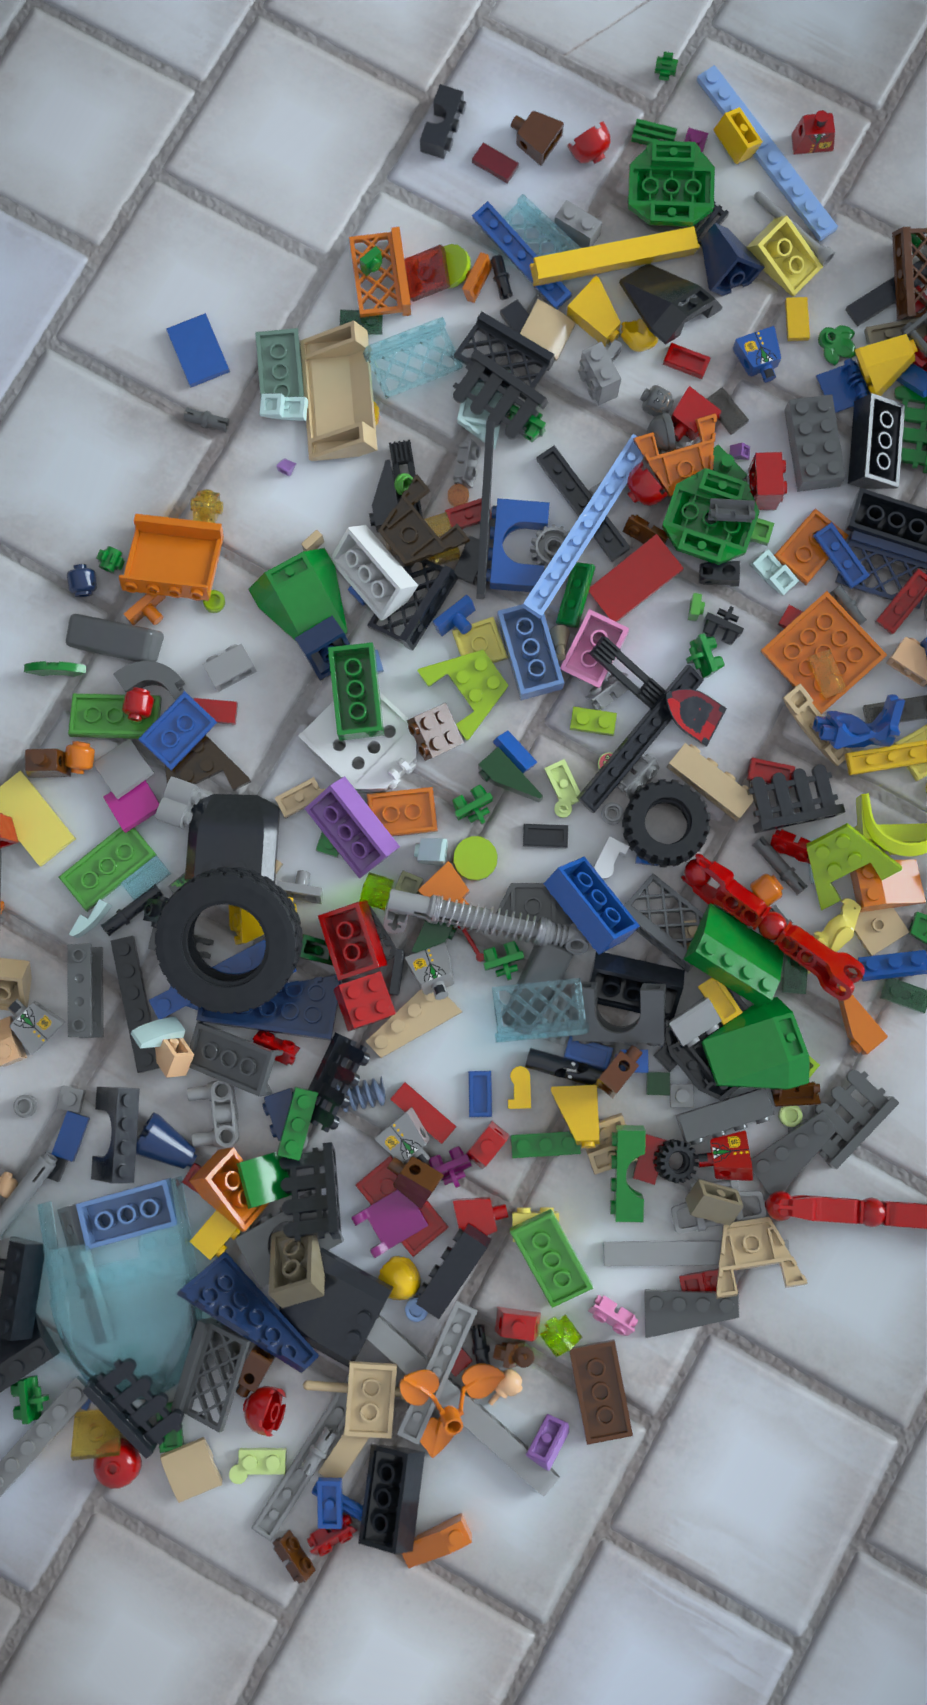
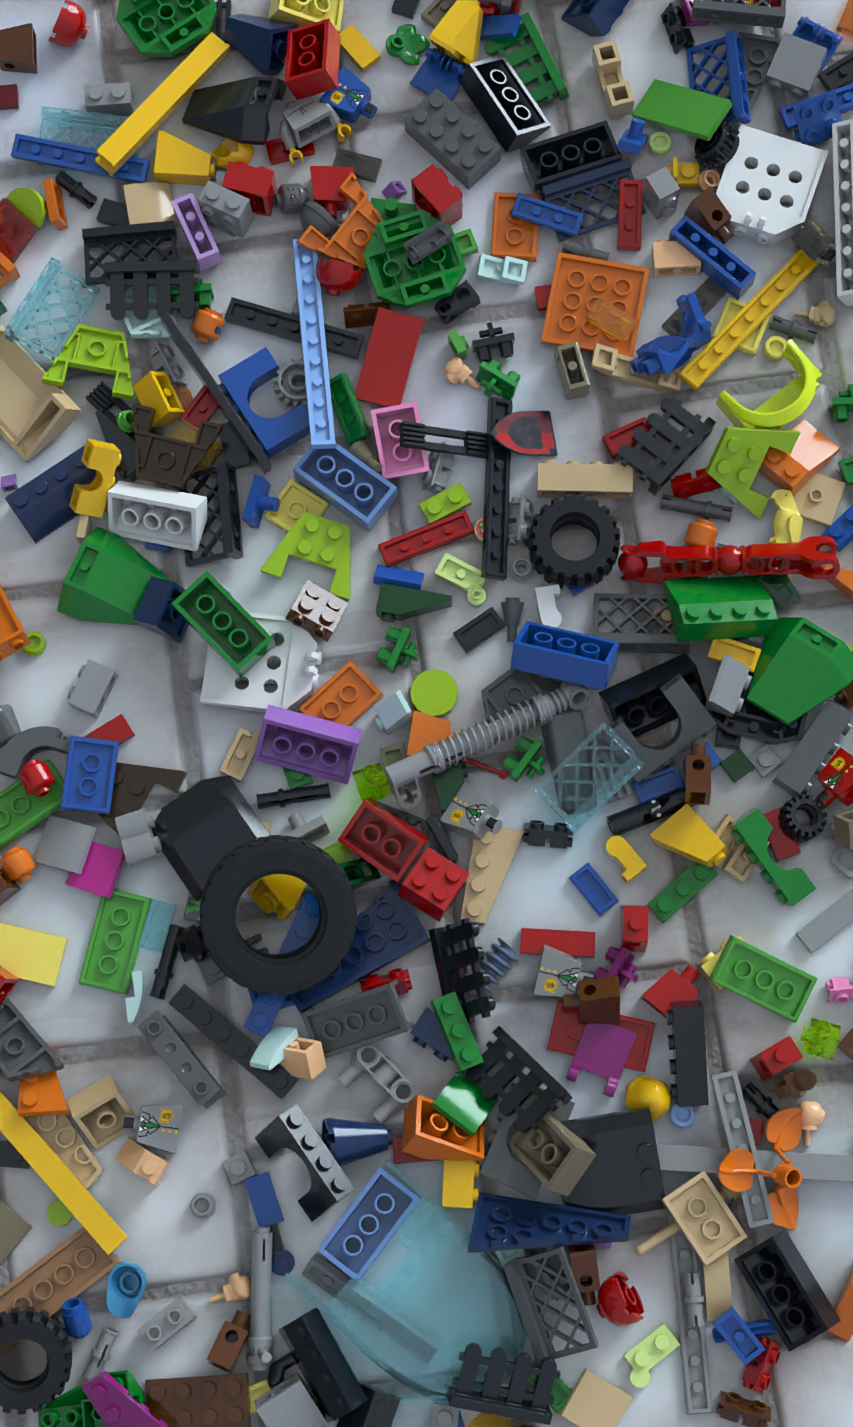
camera: 35 degrees left, 5 degrees down
(50, 1191) = (282, 1262): none -> clear blue tile
(311, 926) = (339, 852): none -> clear neon green tile
(314, 502) = (45, 500): none -> dark blue slope
(320, 860) = (292, 796): none -> black pin
(334, 522) = (93, 497): none -> yellow arch
(422, 413) = (95, 351): none -> lime wing
(442, 480) = (158, 393): none -> yellow brick
(472, 1019) = (538, 832): none -> black hinge
(520, 453) = (207, 325): none -> orange head
(559, 737) = (426, 538): none -> red tile
(565, 375) = (196, 231): none -> lavender brick
(579, 841) = (512, 612): none -> dark grey cone
(634, 369) = (253, 183): none -> red brick
(680, 626) = (458, 371): none -> light nougat piece
(713, 350) = (307, 122): none -> light grey torso
(754, 303) = (312, 59): none -> red brick
(766, 690) = (571, 370): none -> dark tan brick

